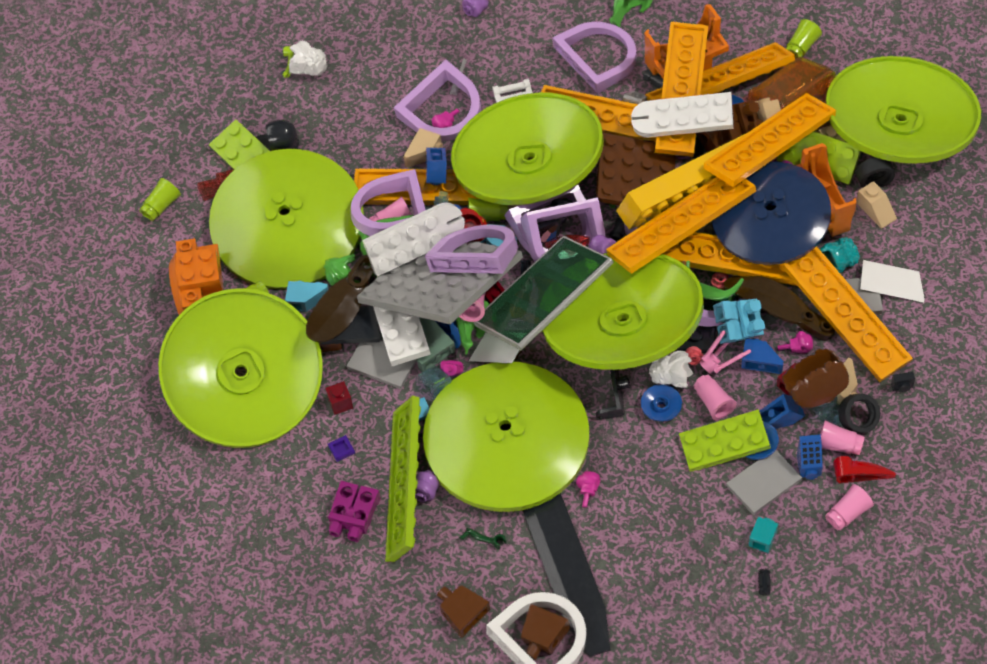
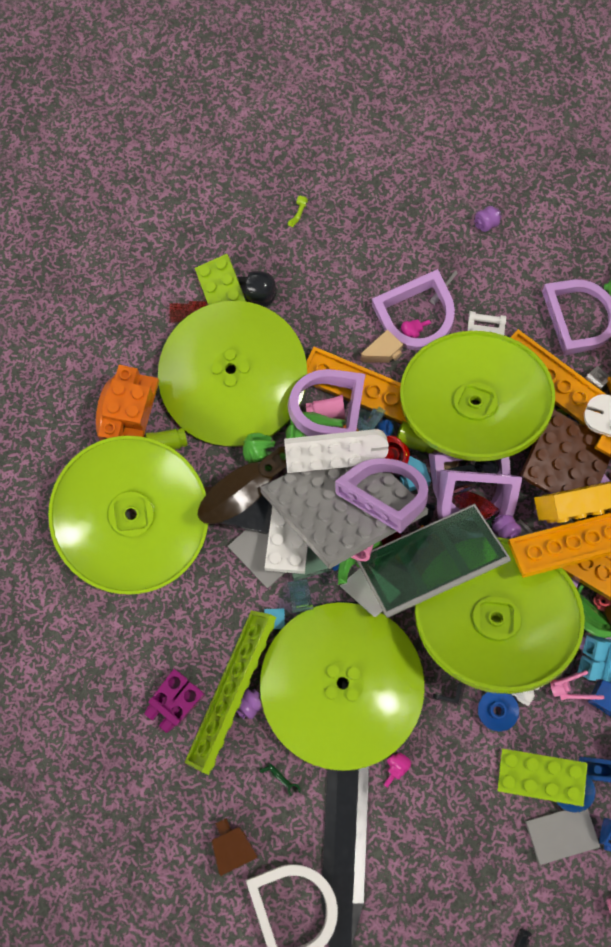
camera: 15 degrees right, 15 degrees up
(159, 199) = (129, 307): lime plant -> none
(305, 295) = (217, 458): medium azure slope -> none
(307, 60) = (313, 218): white hair -> none
(339, 398) = (207, 578): dark red brick -> none
(341, 448) = (190, 628): dark purple tile -> none
(436, 165) = (386, 375): blue slope -> none
(452, 368) = (320, 590): dark pink piece -> none
(543, 631) = (295, 907): reddish brown torso -> none
(618, 230) = (526, 511): black pin -> none
(714, 397) = (549, 725): bright pink plant -> none
(763, 534) = (541, 894): teal brick -> none

